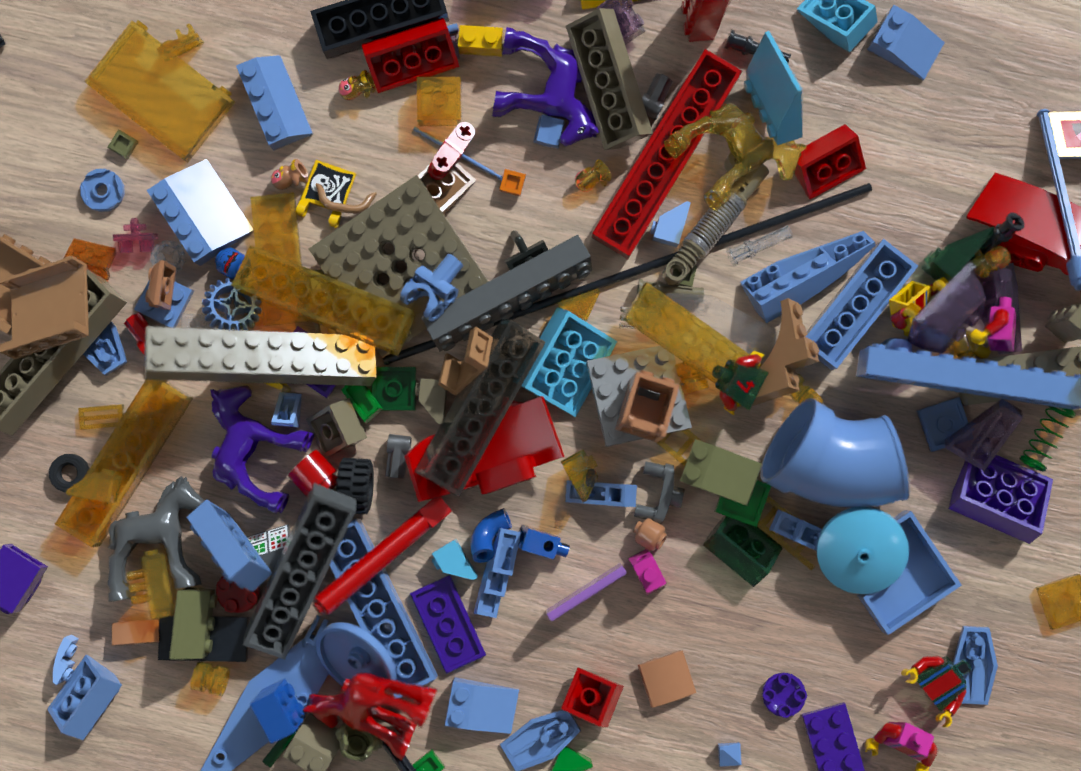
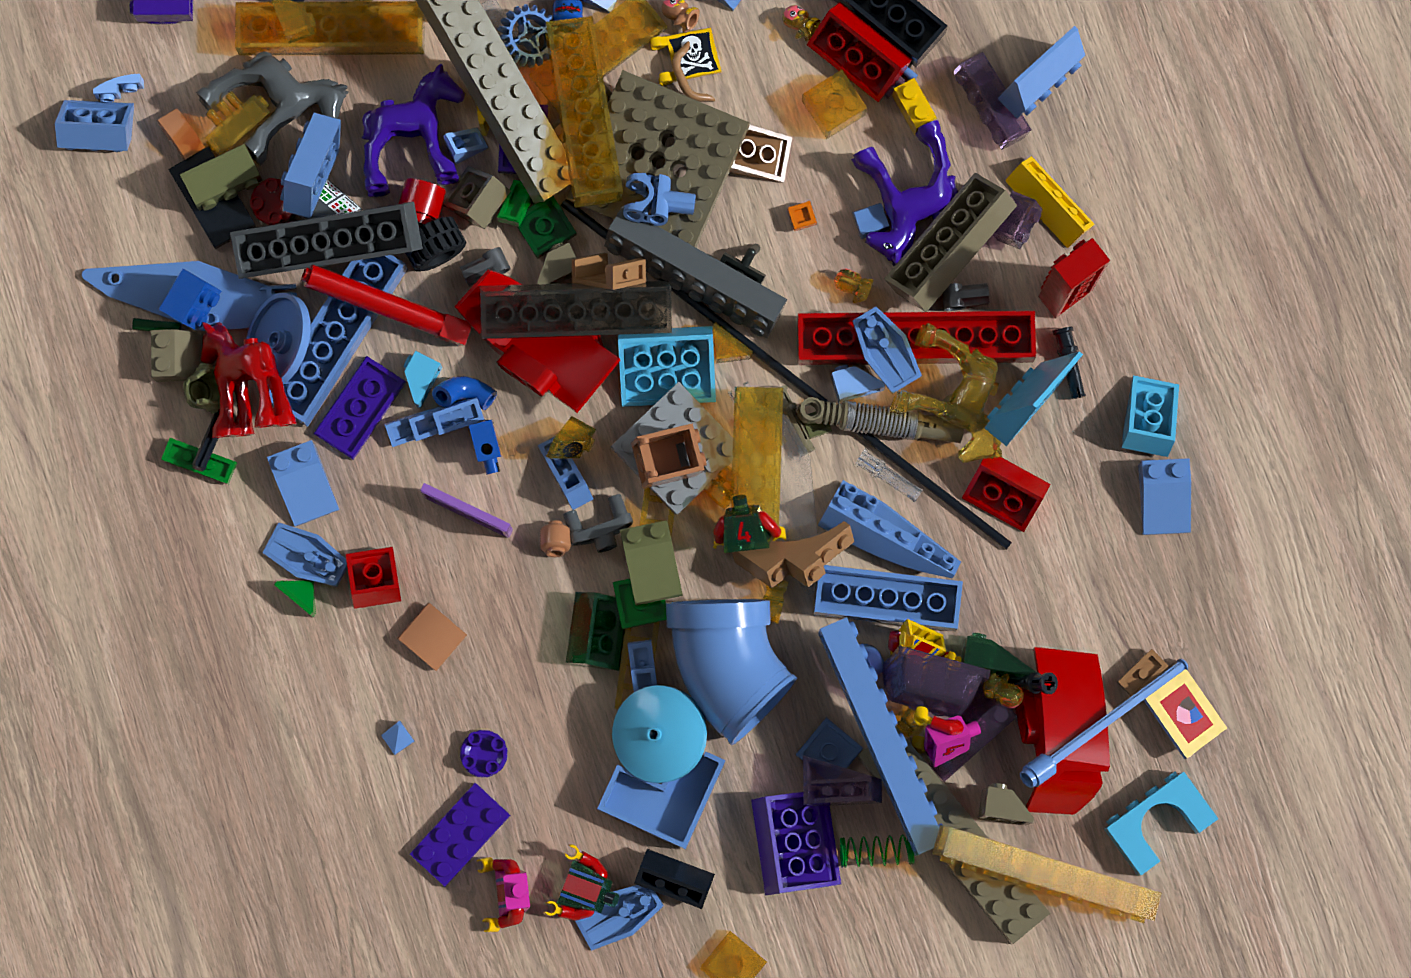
camera: 55 degrees right, 5 degrees down
(210, 678) = (180, 227): clear yellow wheel -> none
(451, 150) = (794, 141): piece -> none
(463, 156) = (798, 150): medium blue piece -> none
(647, 571) = (518, 558): dark pink torso -> none
(665, 182) = (886, 349): none -> medium blue piece
(975, 606) = (674, 878): none -> black brick
(1032, 147) = (1142, 673): none -> medium nougat plate

